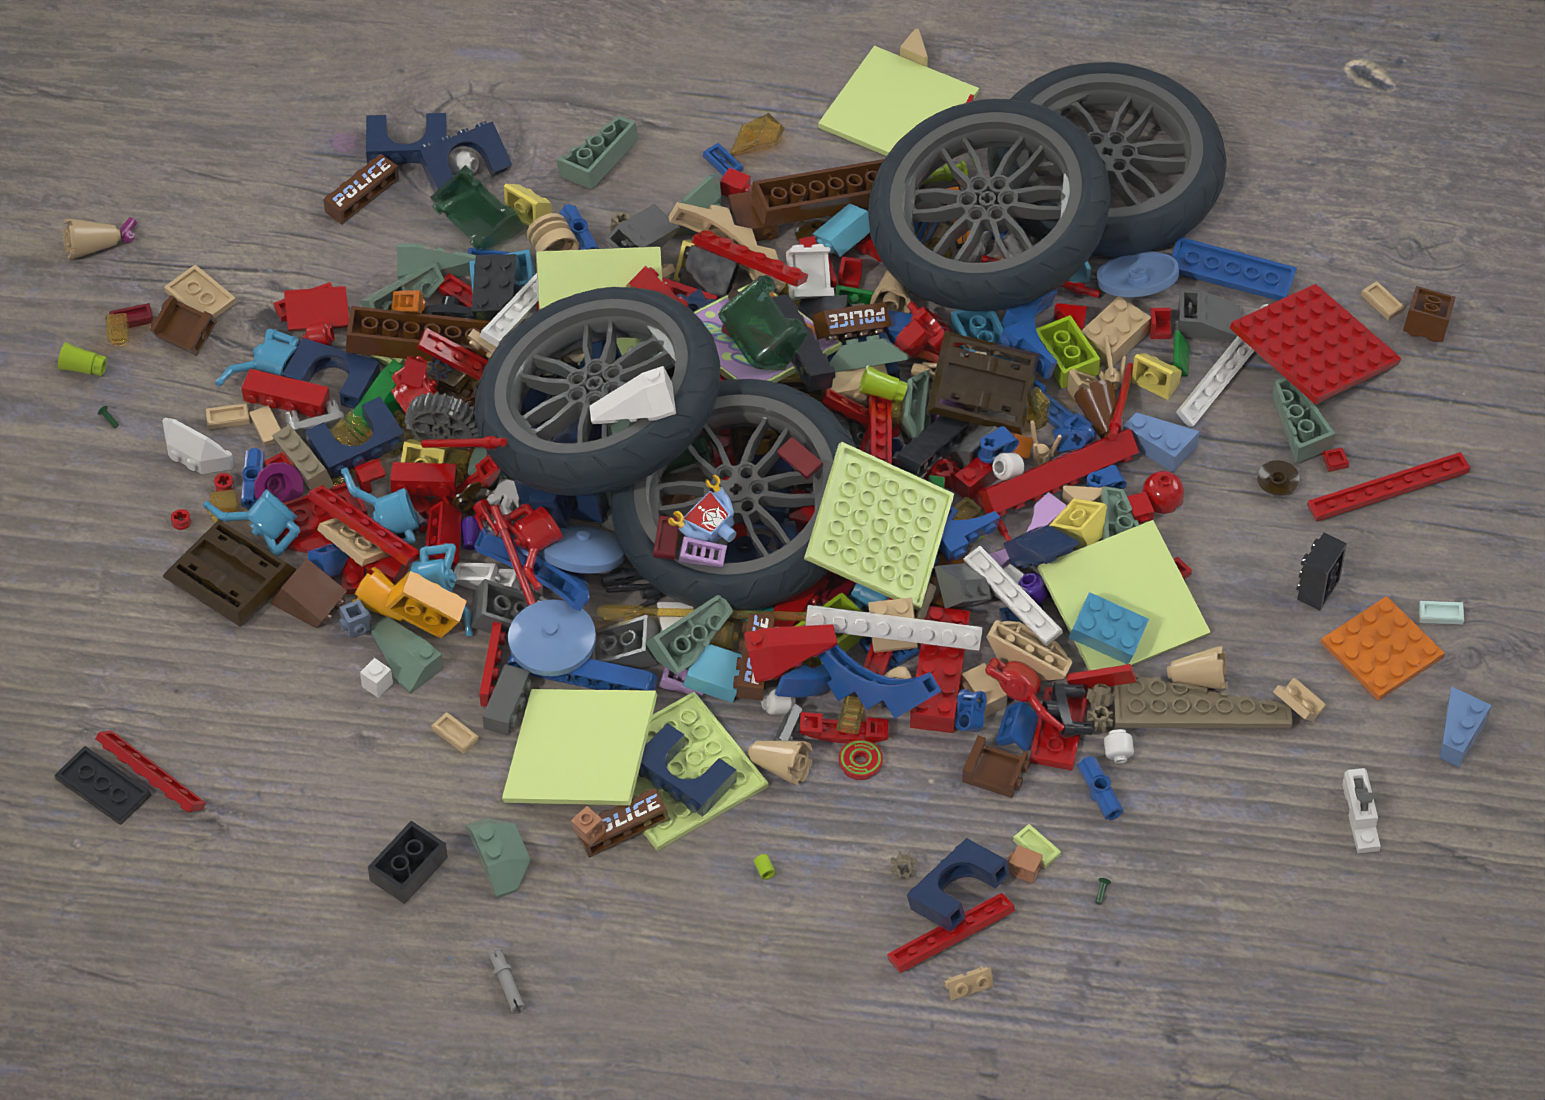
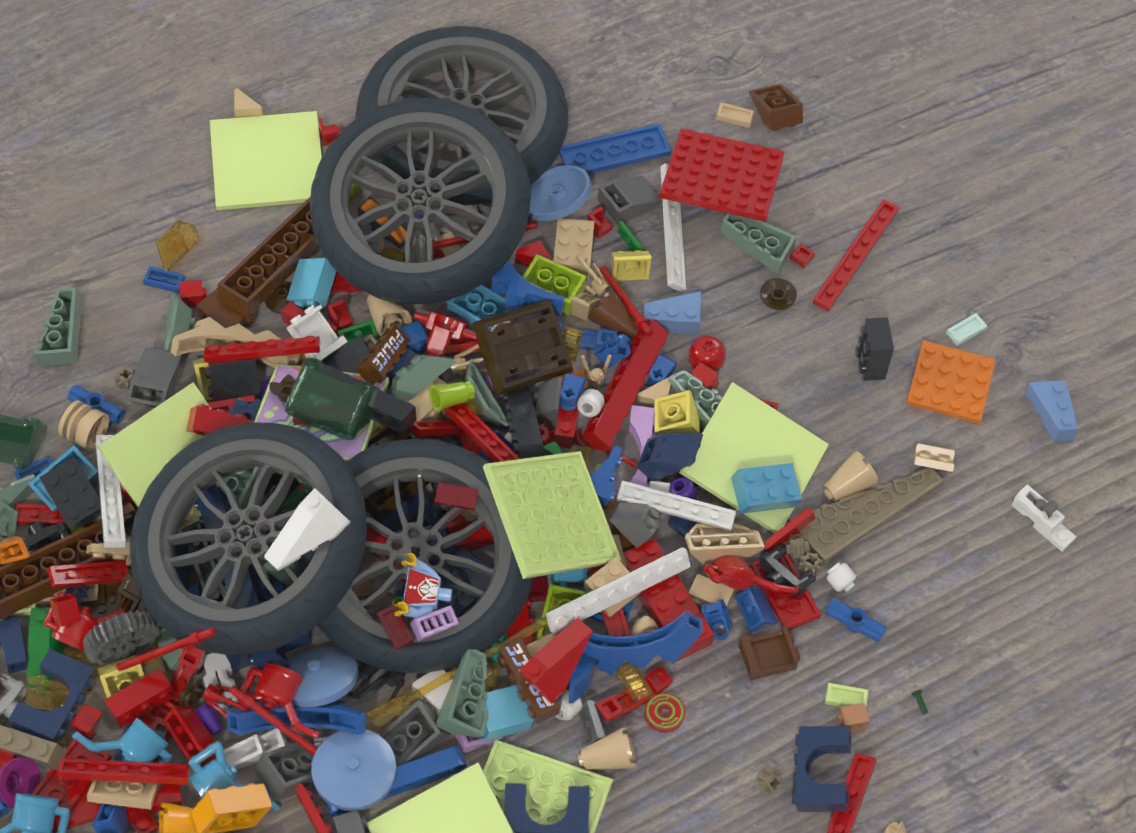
camera: 40 degrees left, 5 degrees up
(526, 203) = (37, 406): light yellow slope -> none

